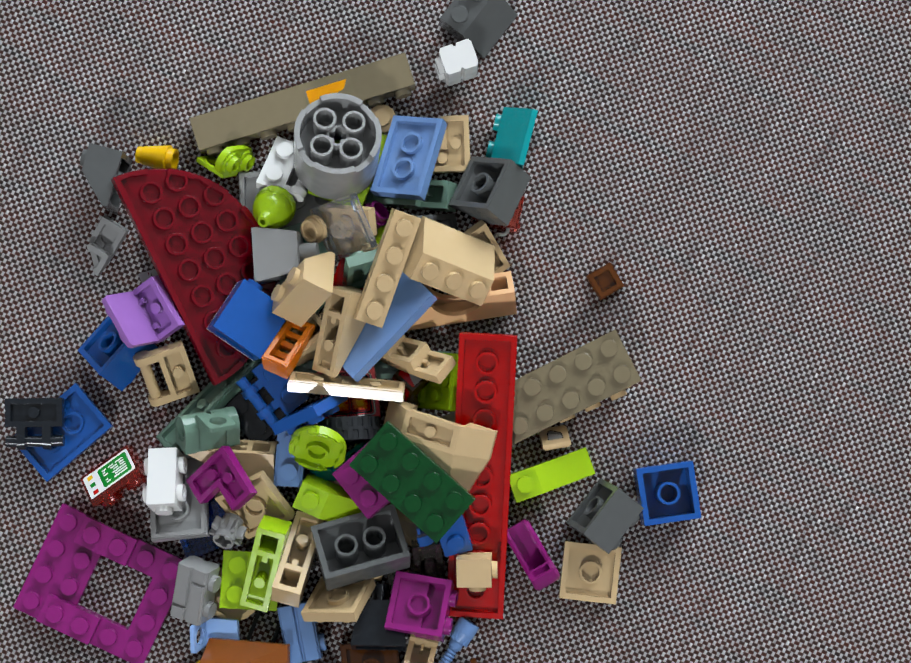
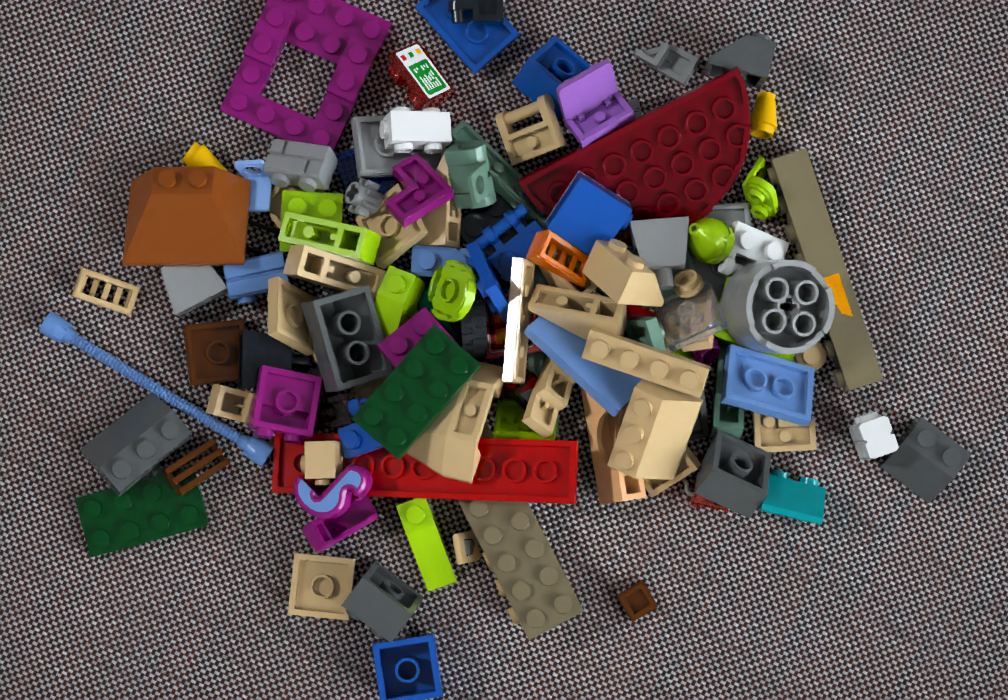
camera: 90 degrees right, 0 degrees up
(508, 557) = (337, 496): none -> magenta animal

